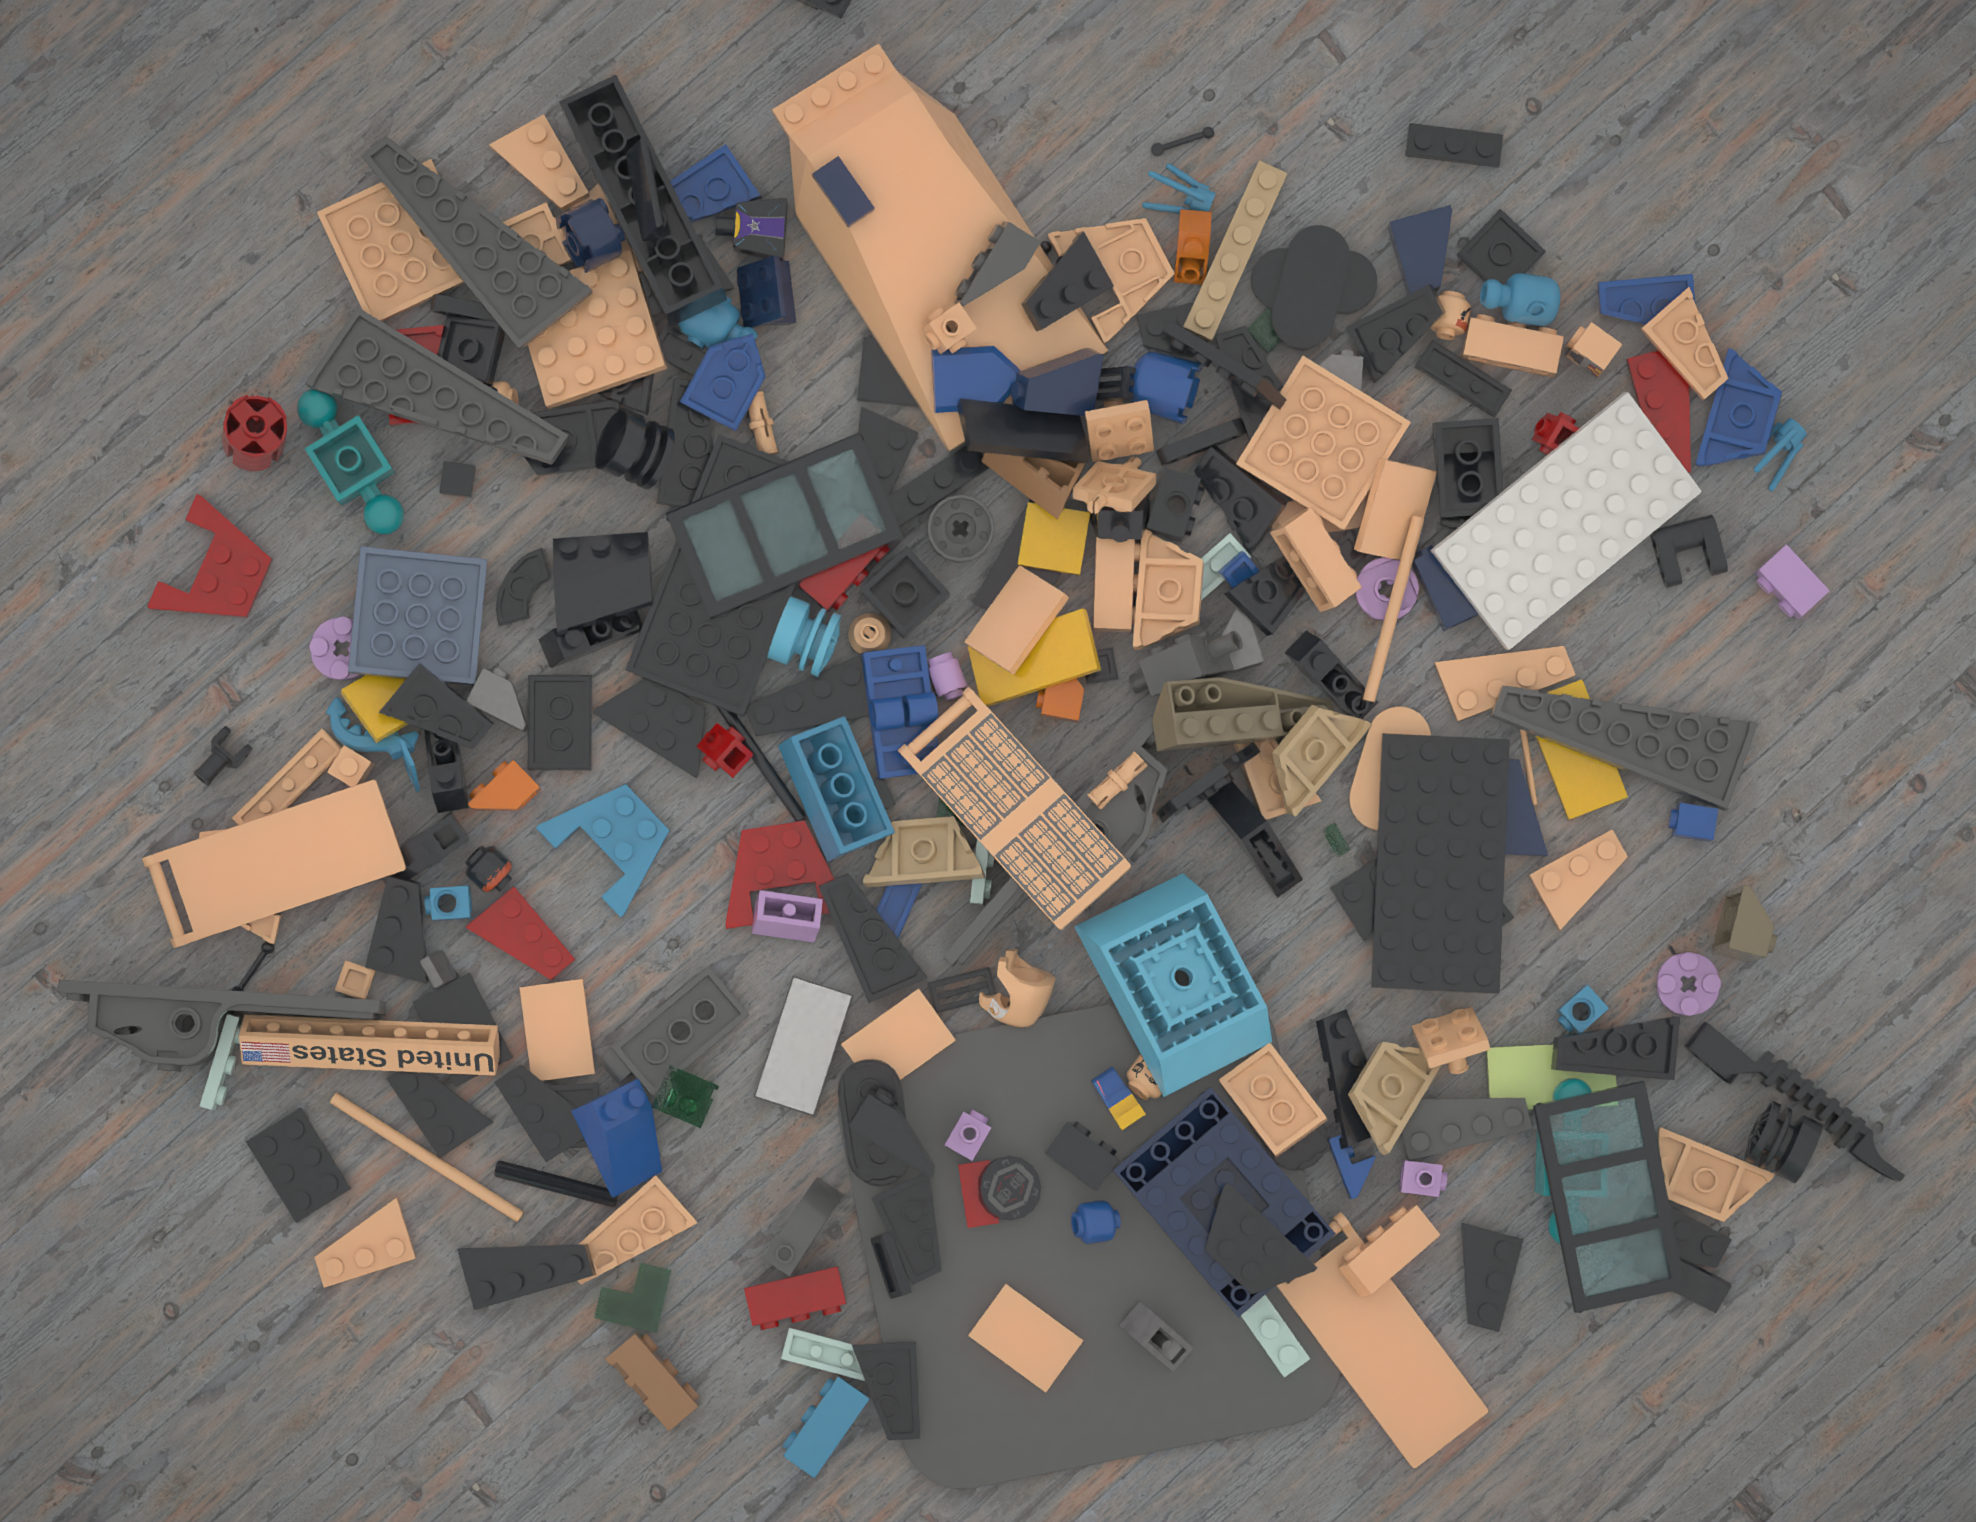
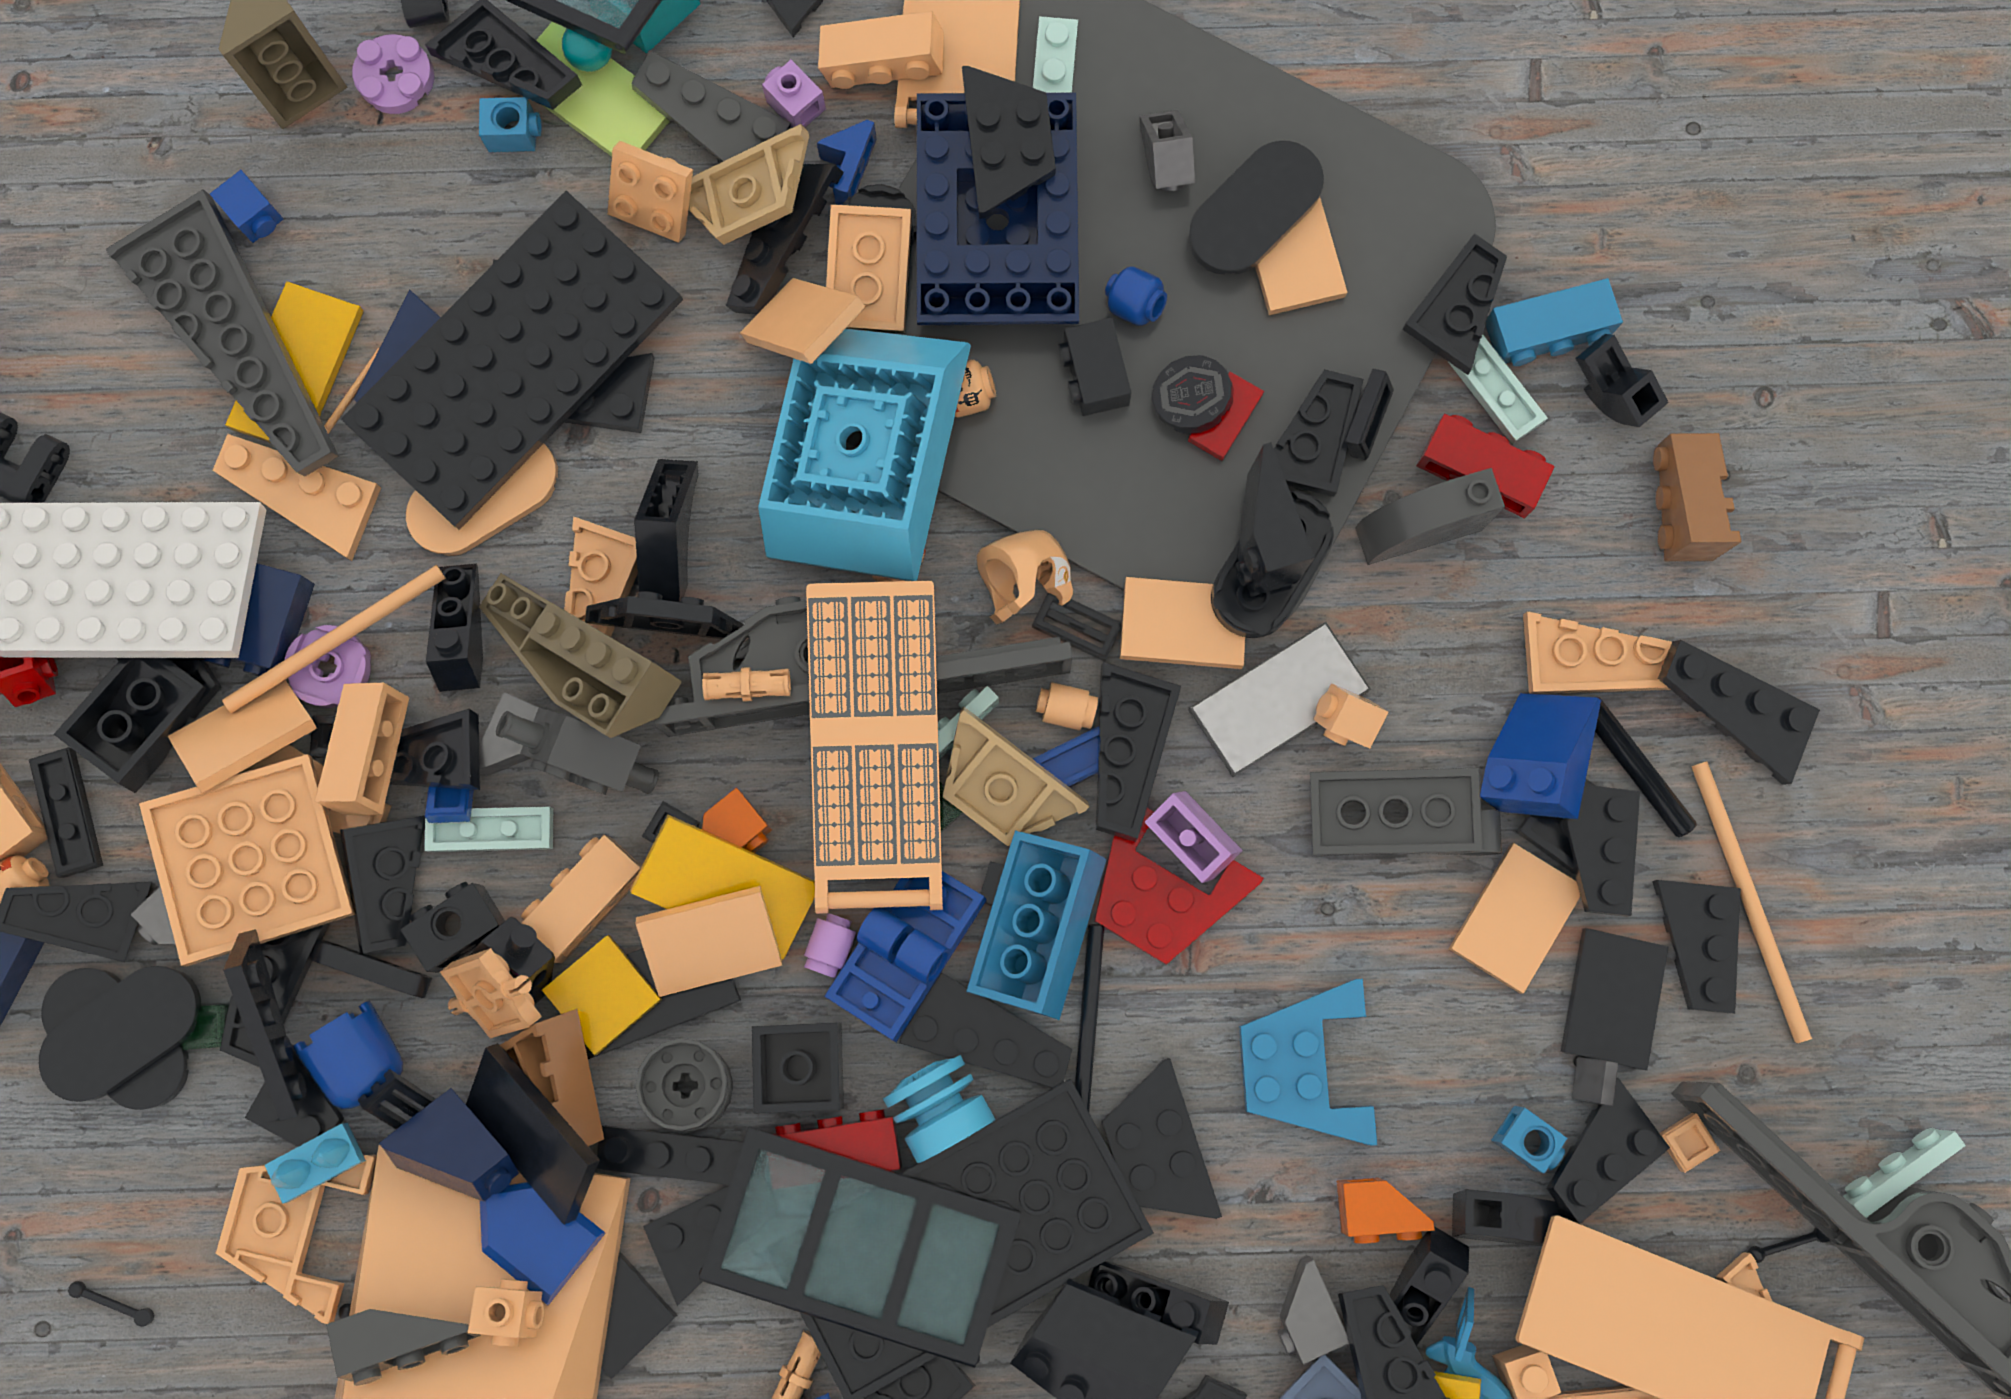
camera: 135 degrees left, 5 degrees down
(298, 1165) = (1892, 1001): black plate -> none
(369, 1044) = (1733, 1057): light nougat brick -> none
(369, 1247) = (1877, 857): light nougat wing -> none
(488, 868) = (1461, 1142): black head -> none
(522, 934) = (1475, 1045): red wing -> none
(560, 722) = (1263, 1235): black tile -> none
(642, 1307) = (1648, 578): clear green plate -> none
(685, 1096) = (1444, 742): clear green plate -> none
(724, 750) = (1118, 1060): red brick -> none
(753, 1066) = (1349, 717): none -> light nougat brick
(754, 1416) = (1617, 388): none -> black brick
(877, 640) = (873, 1070): light nougat cone -> none
(926, 933) = (1067, 706): none -> light nougat brick
(968, 1134) = (1190, 475): lavender brick -> none
(1068, 285) = (350, 1250): black wing -> none
(1068, 1341) = (1256, 207): none -> black tile
(1117, 1098) = (1015, 390): leg -> none
(1119, 430) = (435, 1049): light nougat plate -> none
(1133, 312) = (314, 1163): none -> medium azure tile
(1166, 591) = (536, 842): light nougat wing -> none
(1192, 246) = (196, 1180): orange slope -> none
(1197, 198) = (148, 1226): dark azure plant -> none
(1234, 251) = (155, 1140): tan plate -> none
(1281, 1030) = (802, 320): none -> light nougat tile
(1313, 753) = (537, 561): tan wing -> none
(1336, 840) = (592, 466): clear green tile -> none
(1577, 875) = (402, 251): light nougat wing -> none

